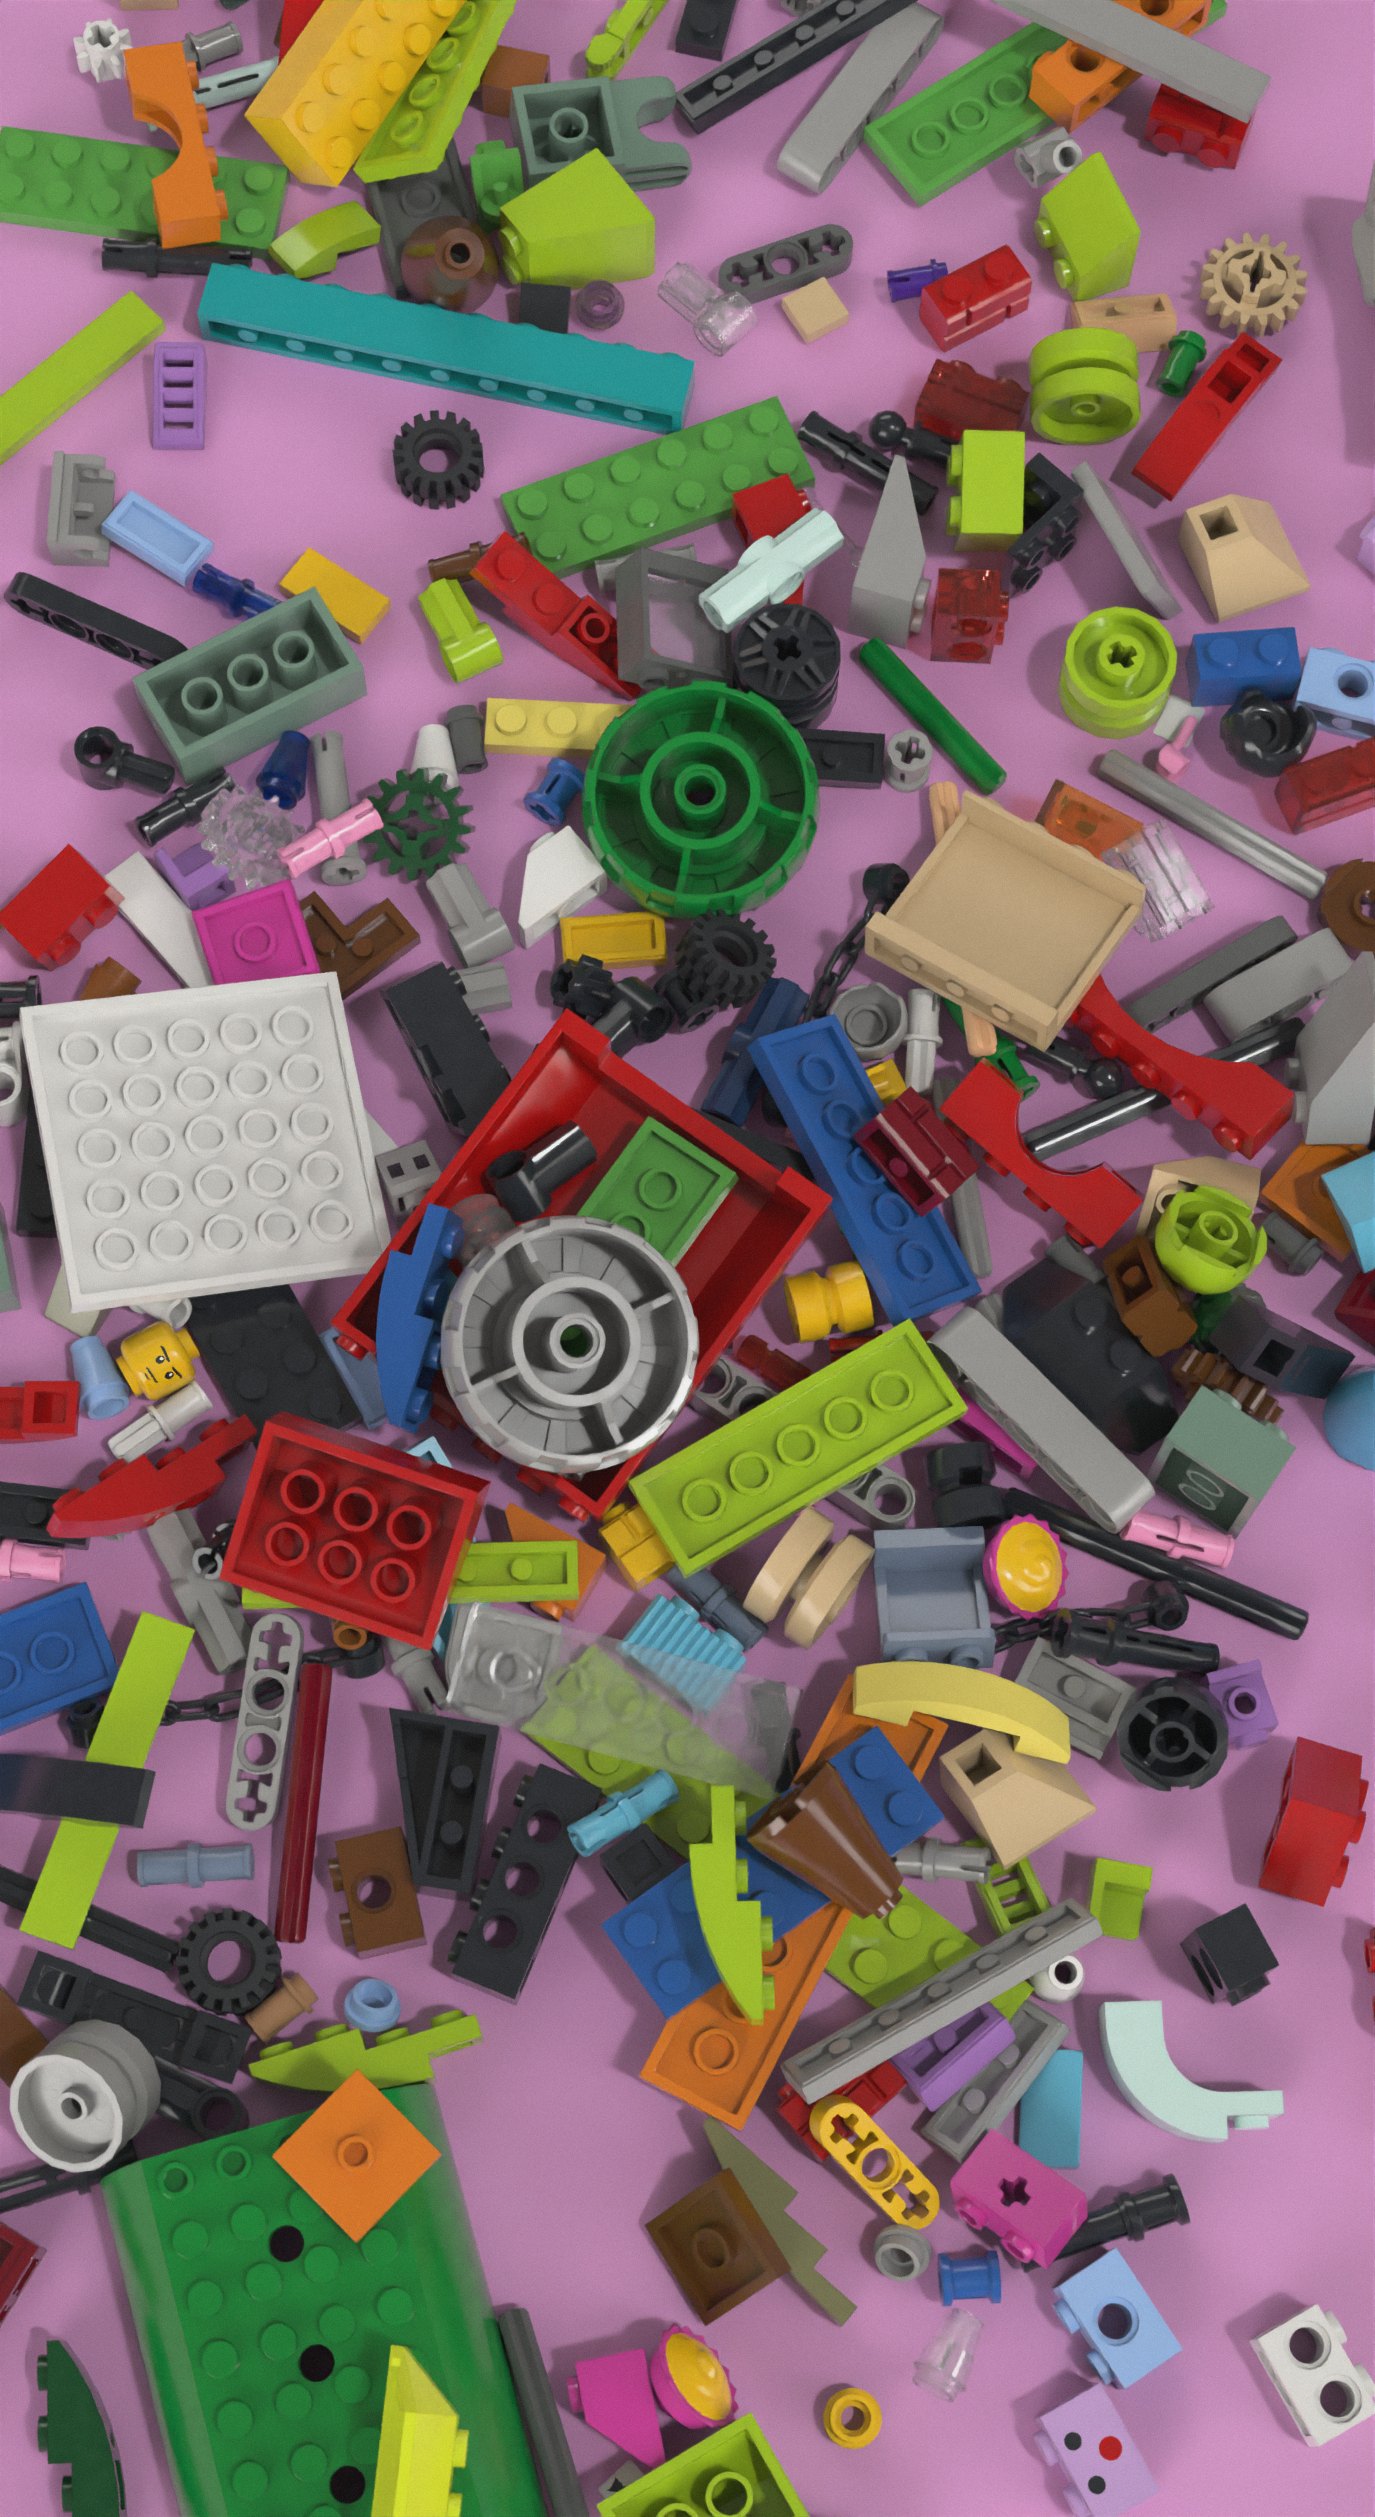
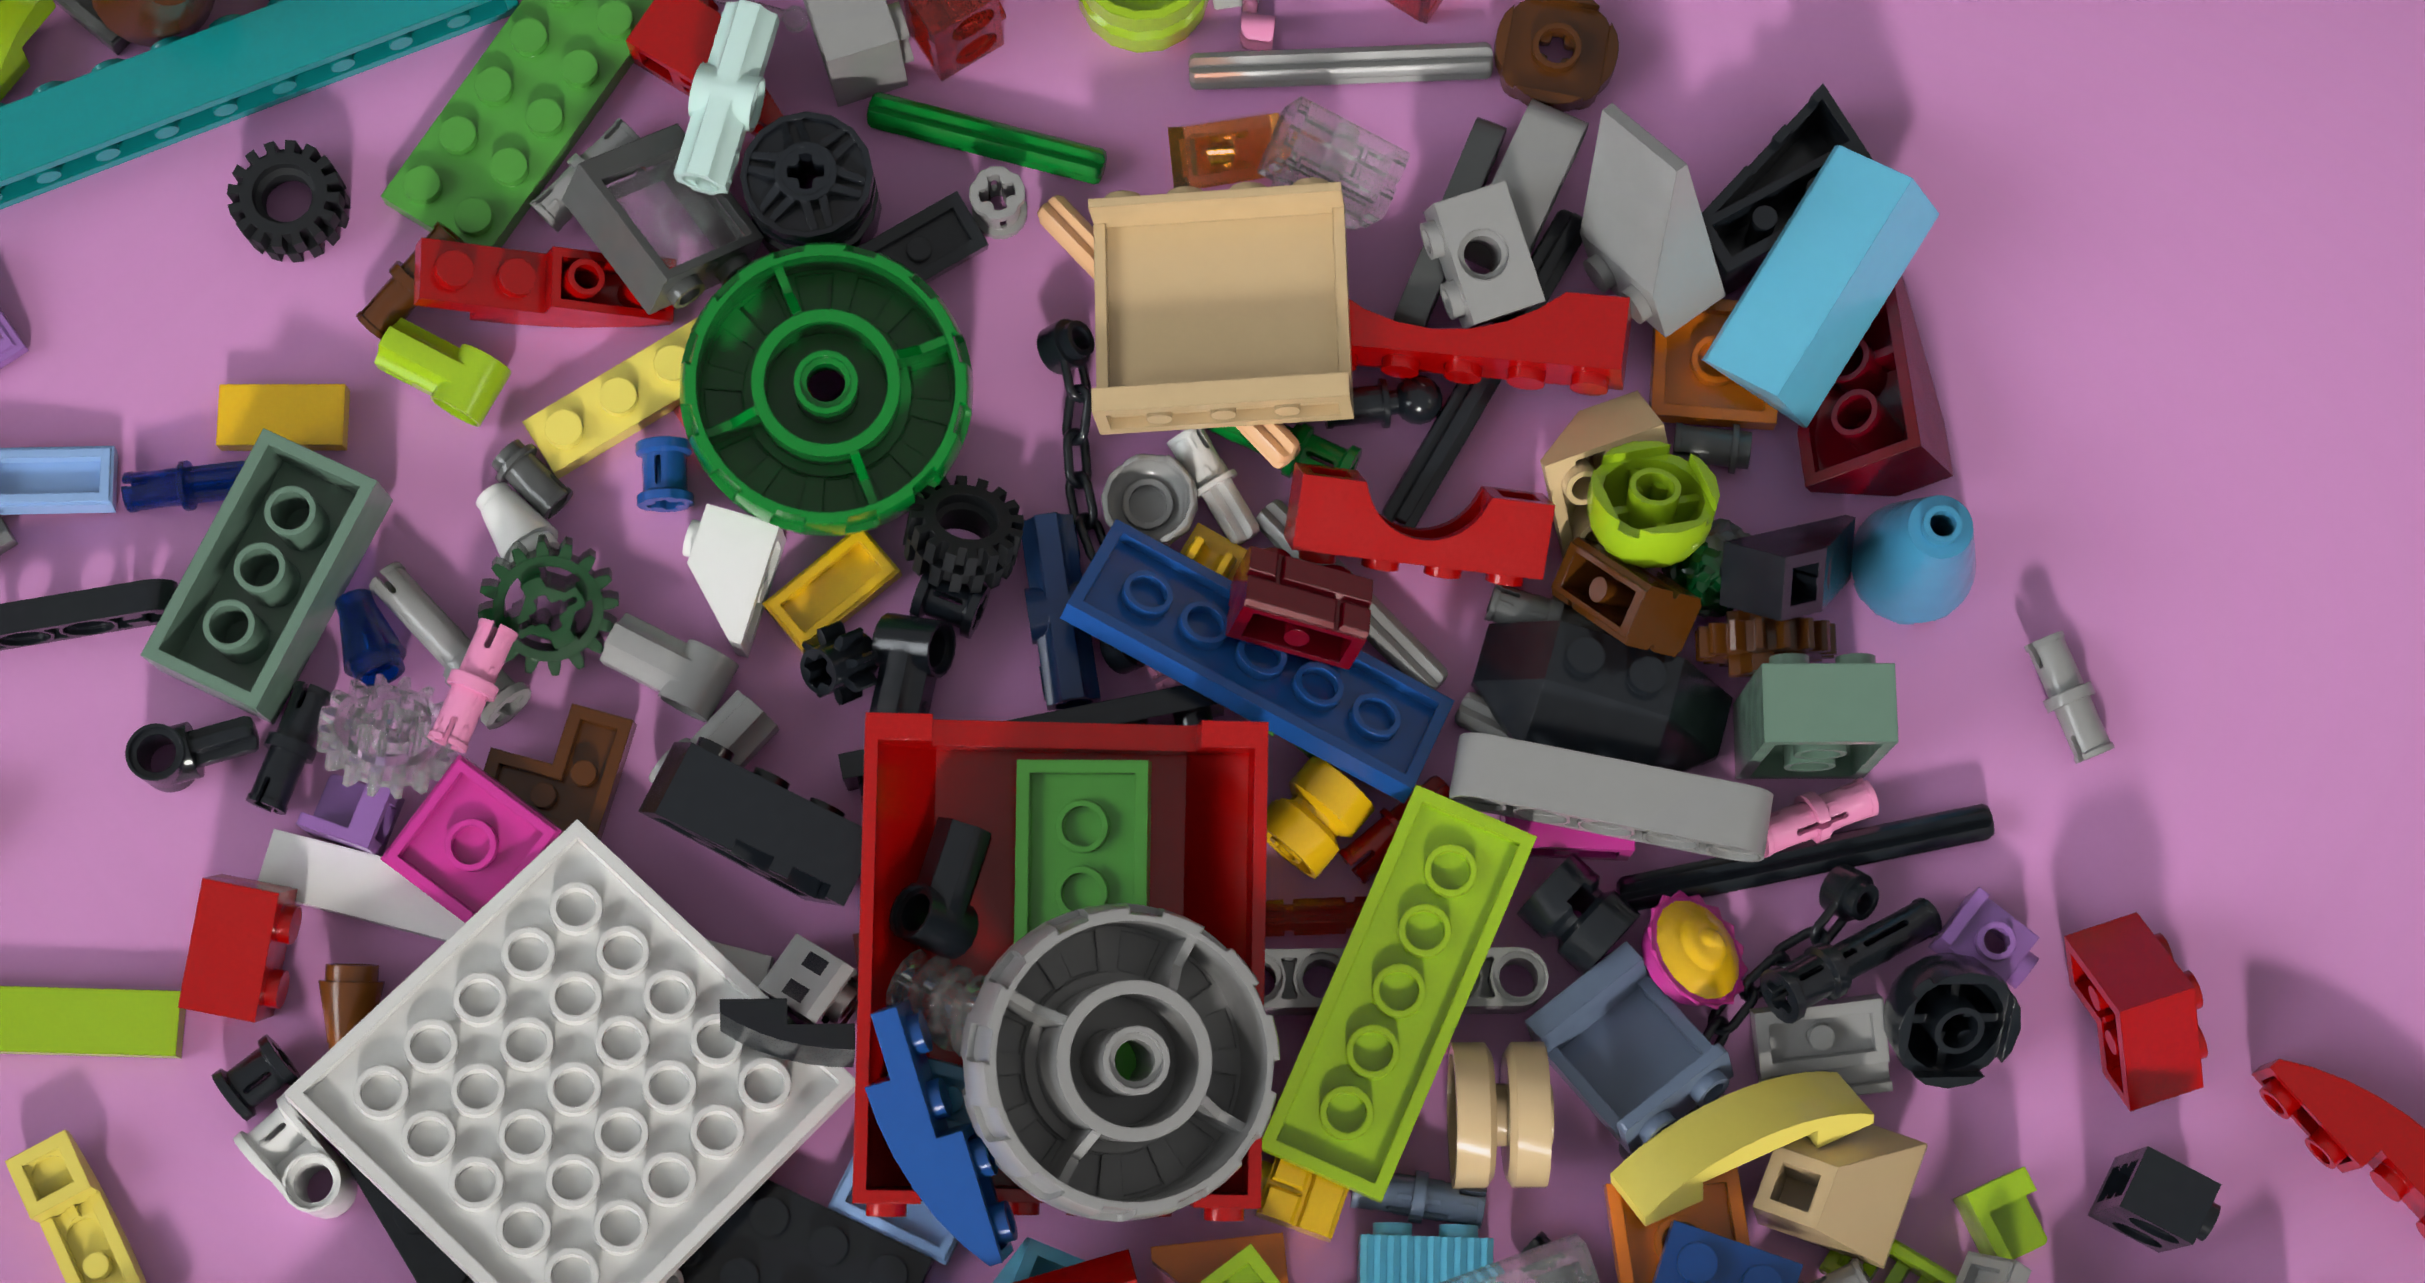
camera: 35 degrees left, 5 degrees up
(359, 1182) = (765, 1028): none -> black slope
(1233, 979) = (1491, 220): none -> light grey brick

